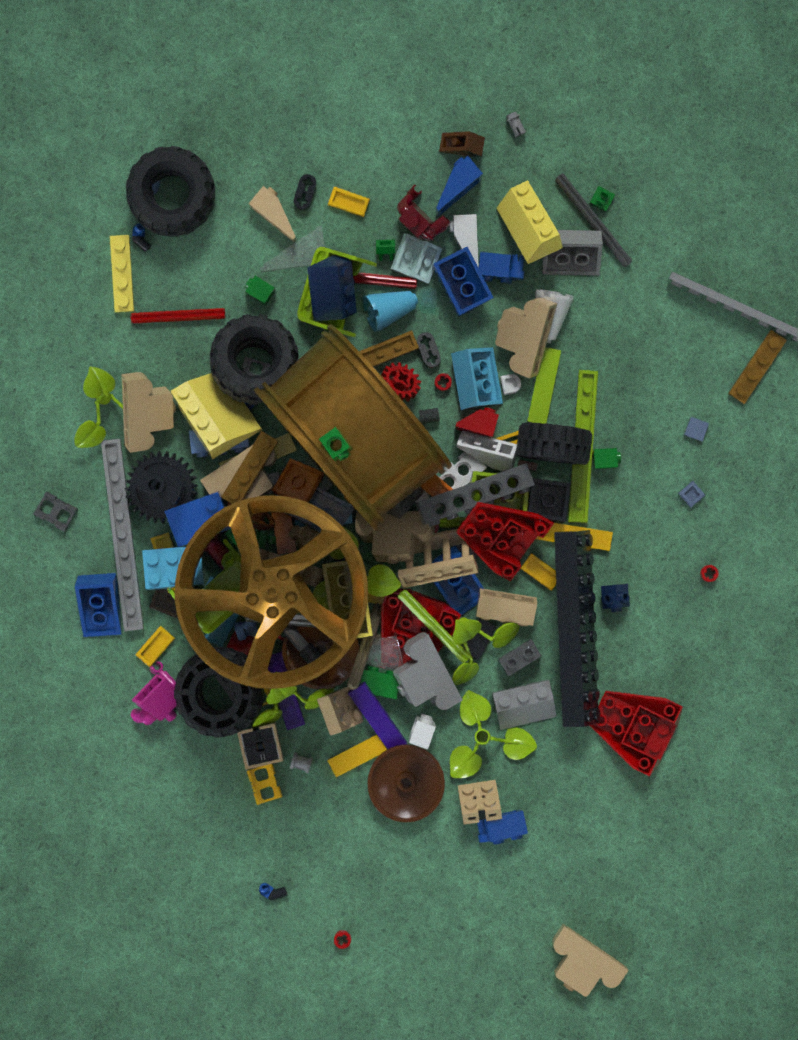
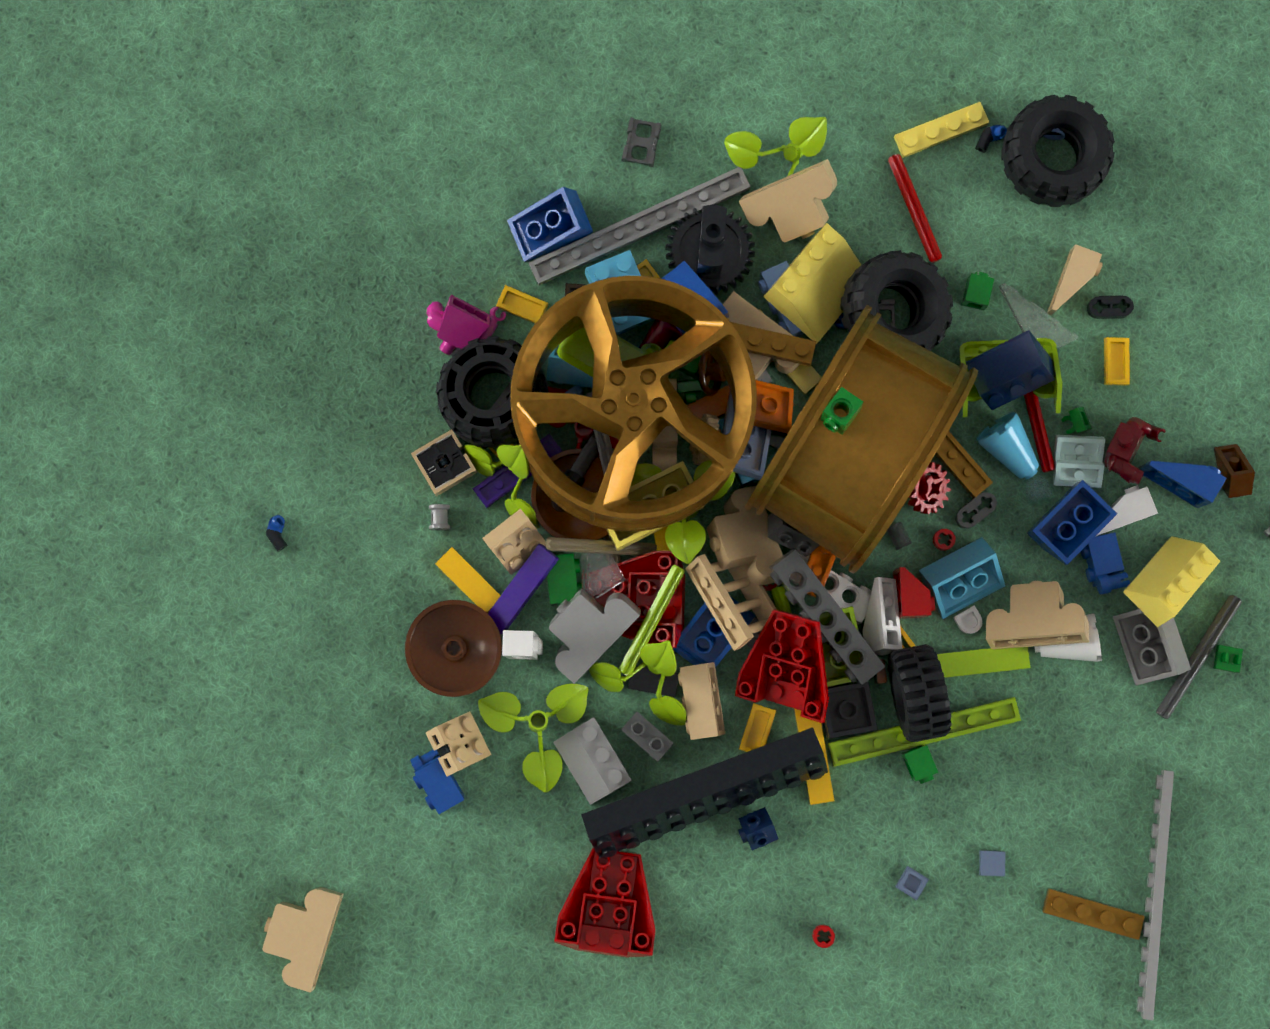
camera: 70 degrees right, 5 degrees down
(258, 785) = (405, 488): yellow piece -> none
(344, 945) = (250, 628): red bush -> none

